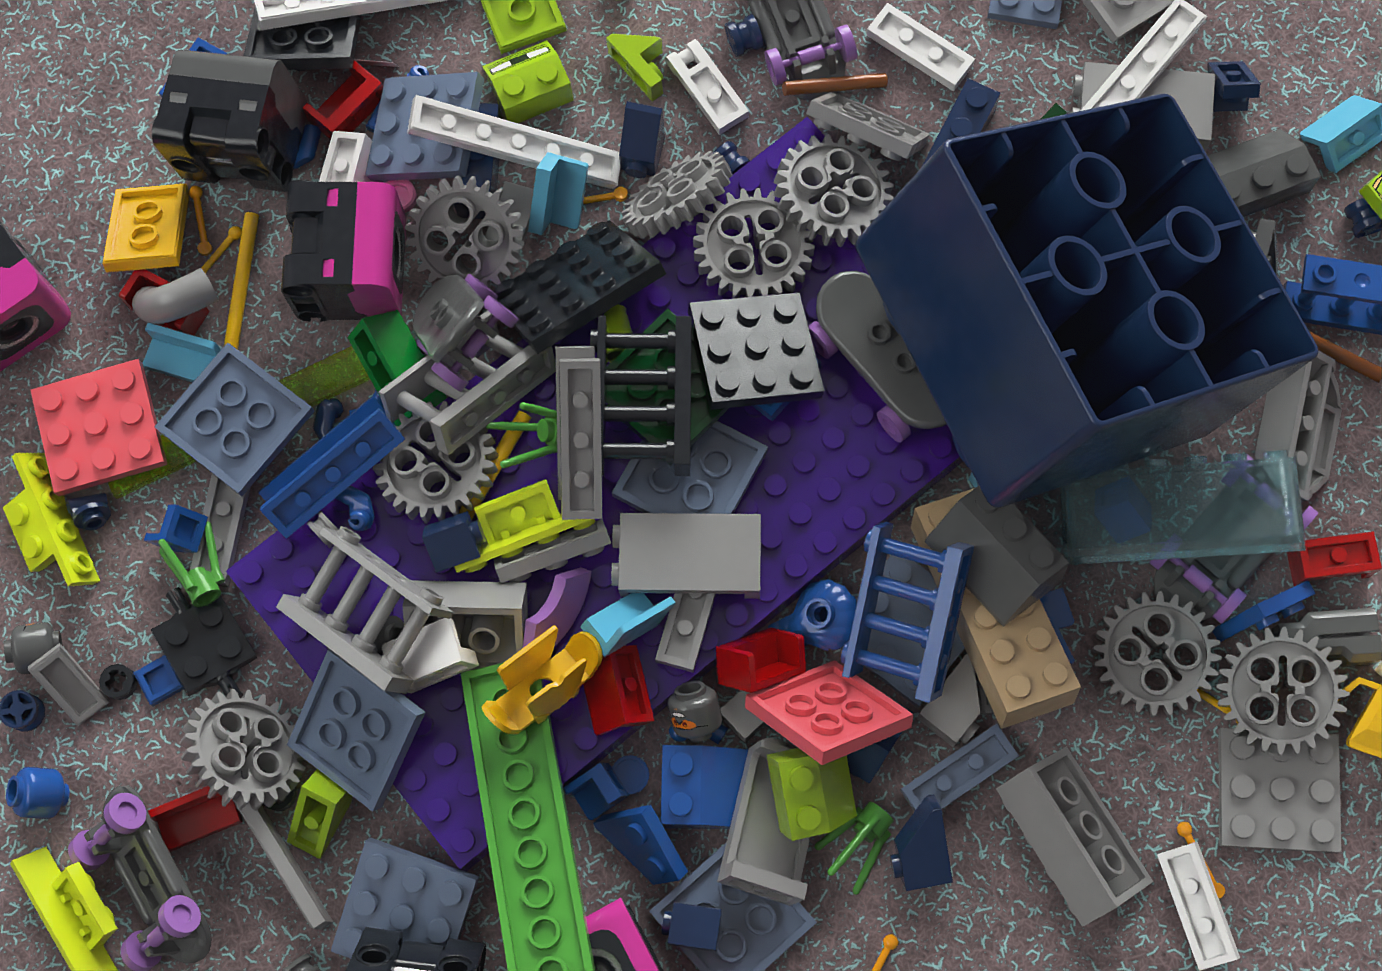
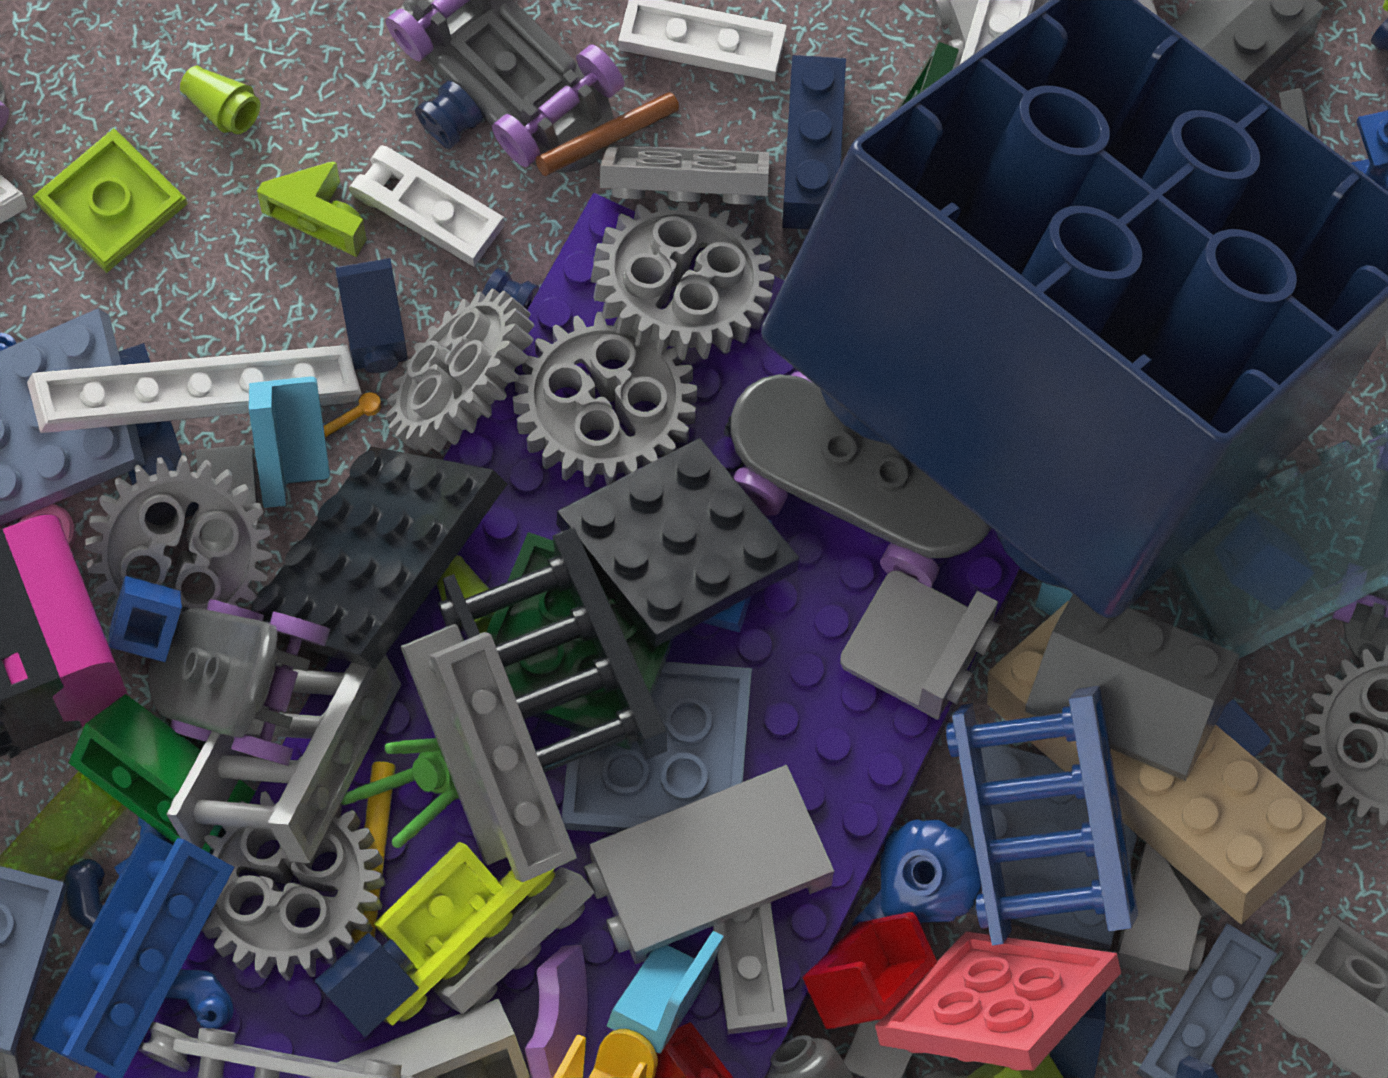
camera: 30 degrees left, 5 degrees down
(423, 269) = (145, 619): none -> blue brick
(529, 82) = (168, 295): lime slope -> none
(879, 473) = (920, 642): none -> light grey bracket

